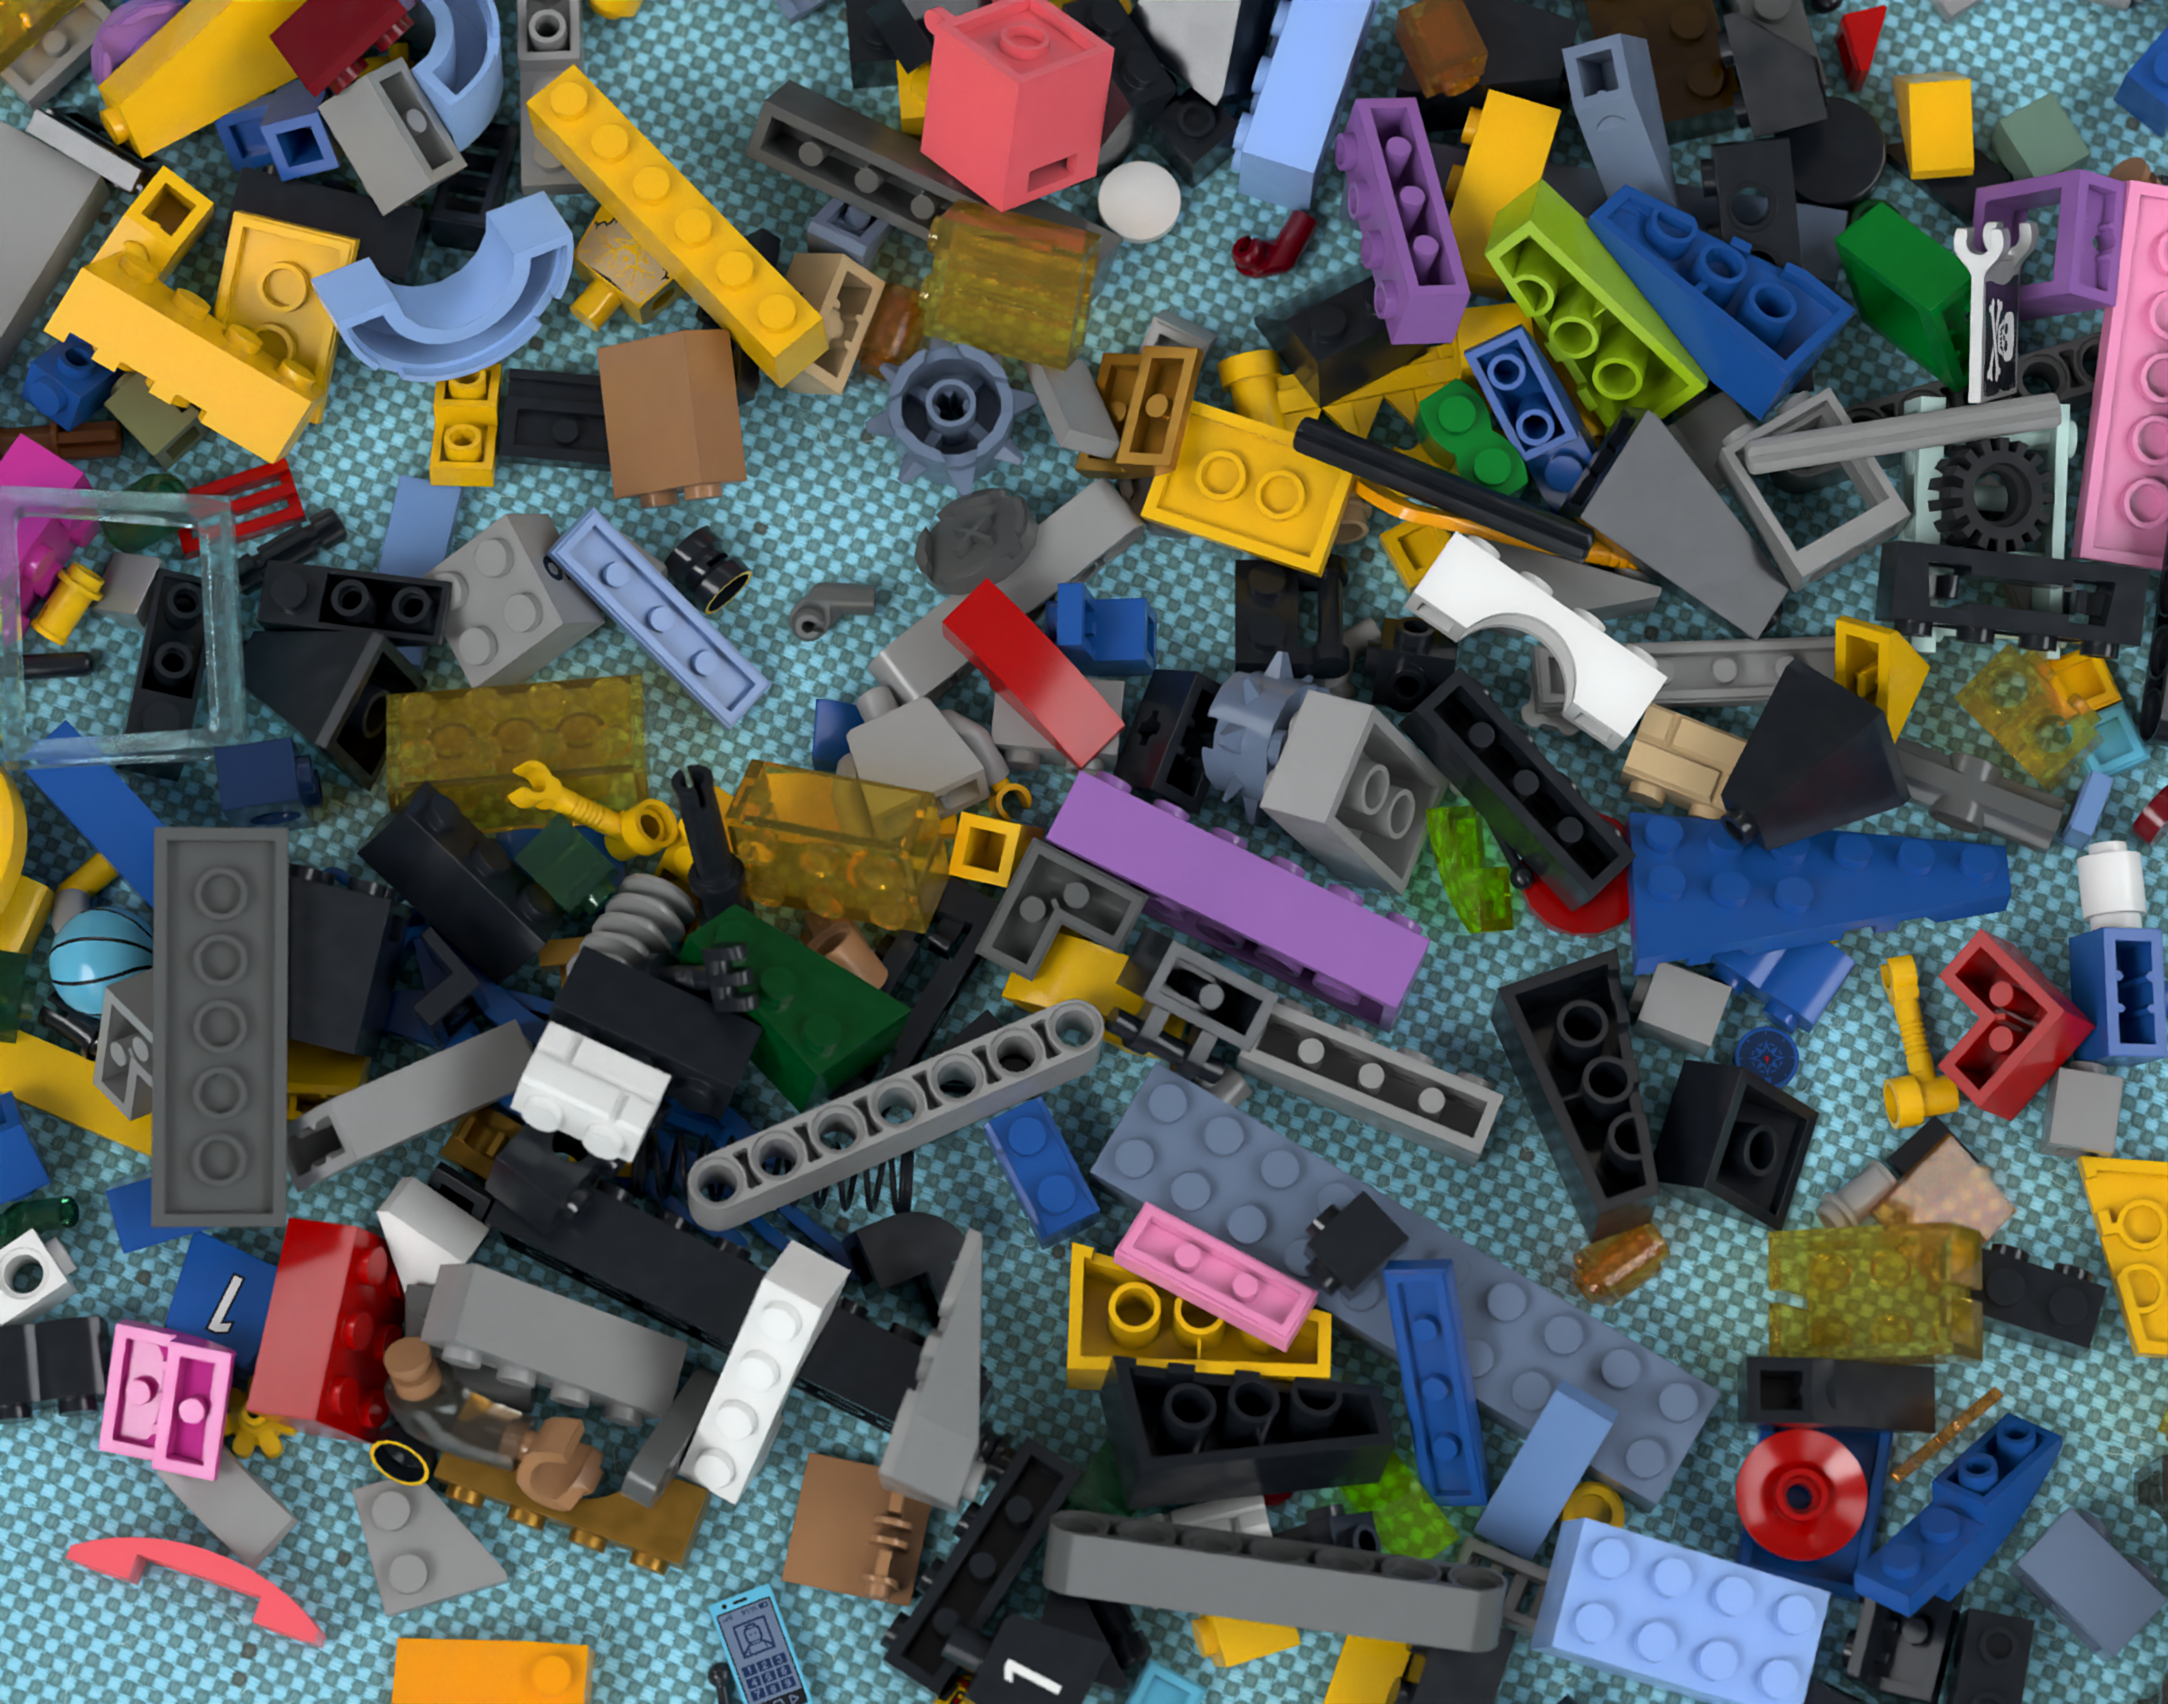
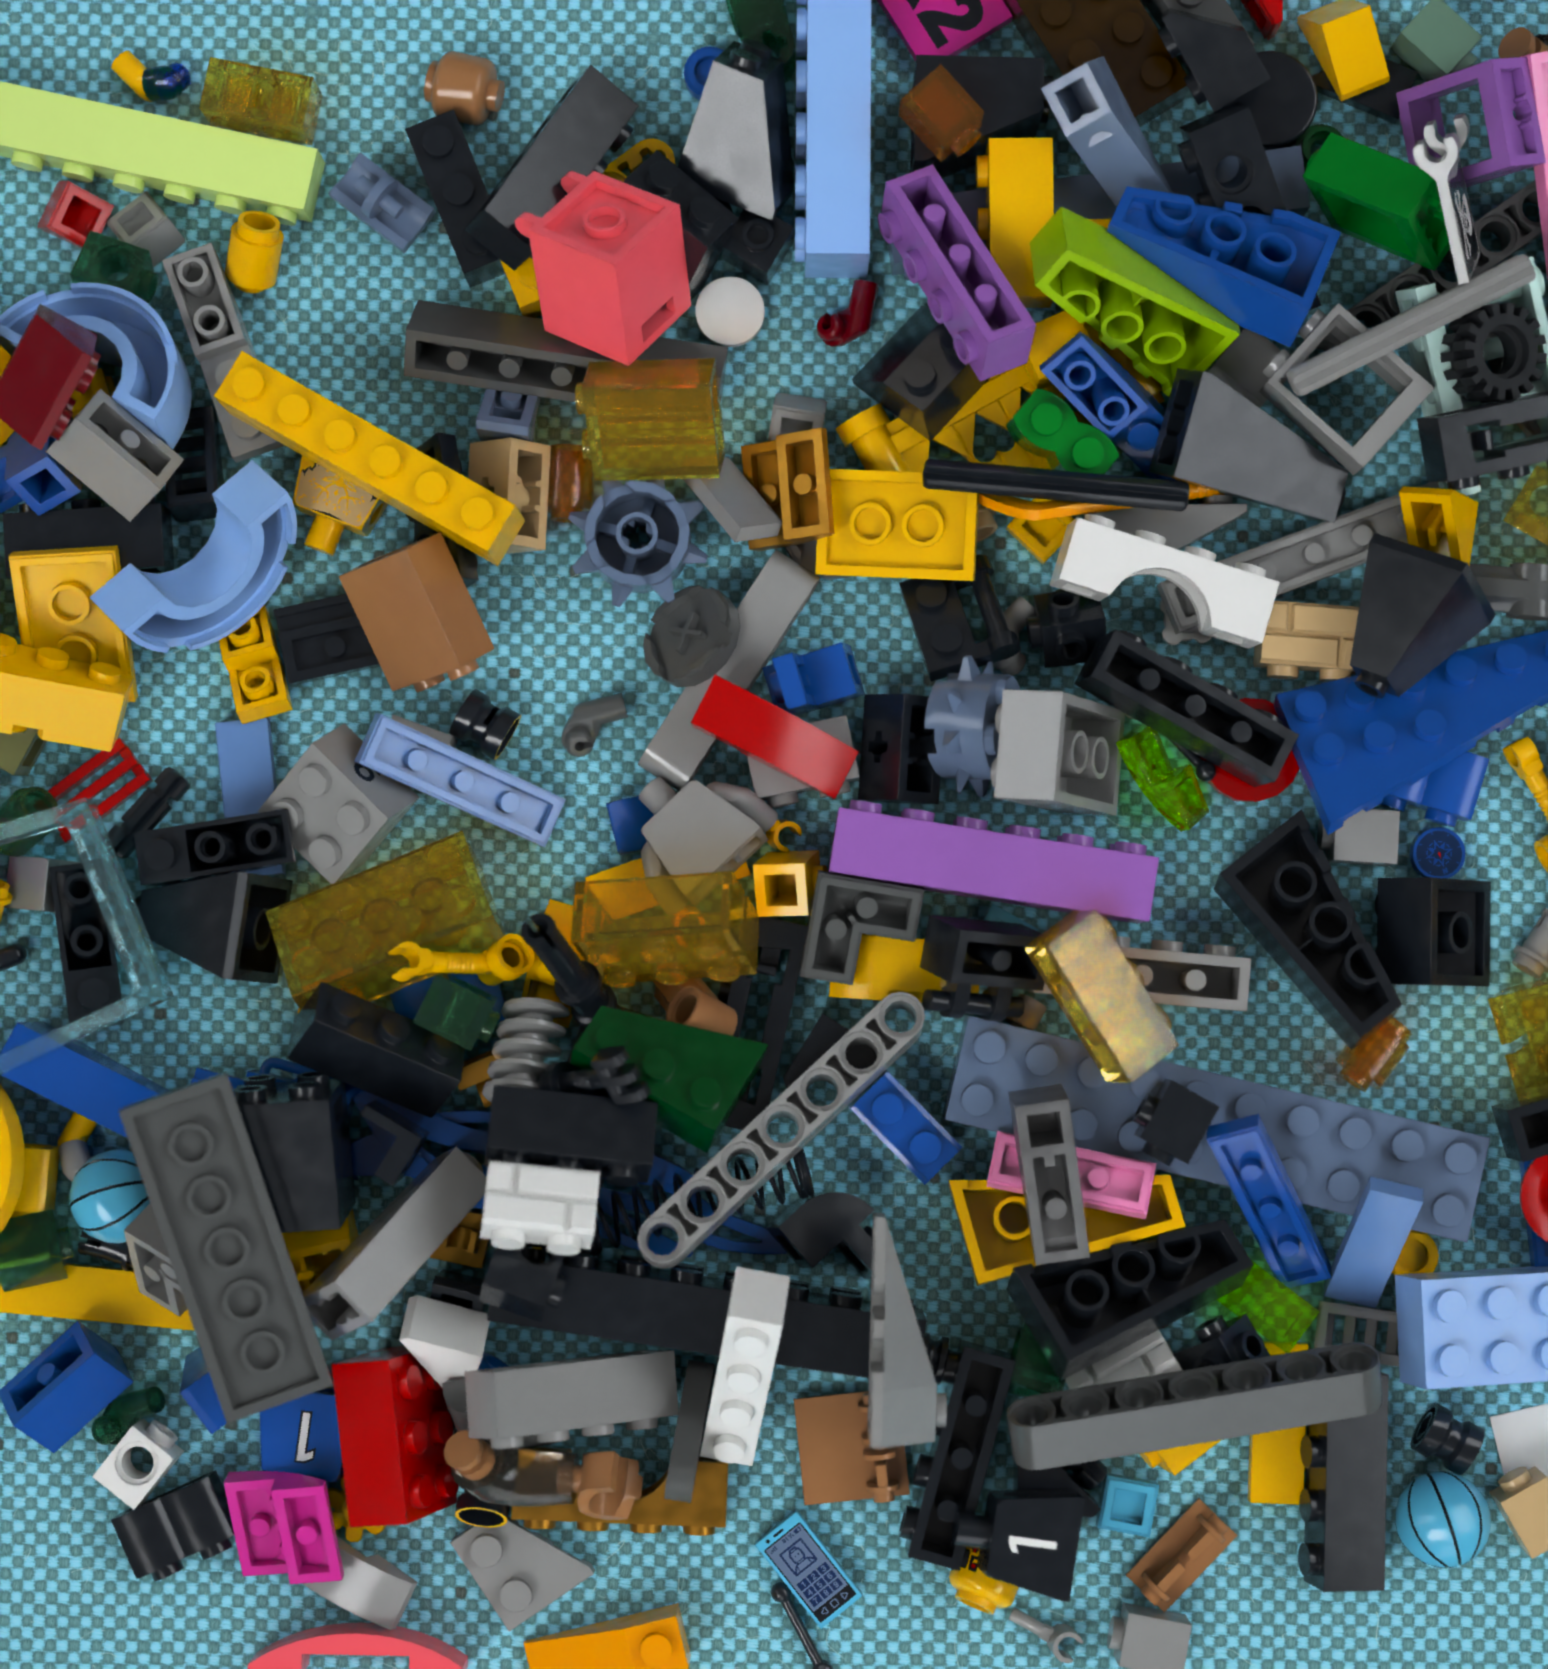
camera: 15 degrees left, 10 degrees up
(268, 785) = (195, 1015): dark blue brick -> none
(1187, 1258) = (1049, 1173): none -> flat silver slope
(1315, 1074) = (1102, 995): none -> clear yellow brick

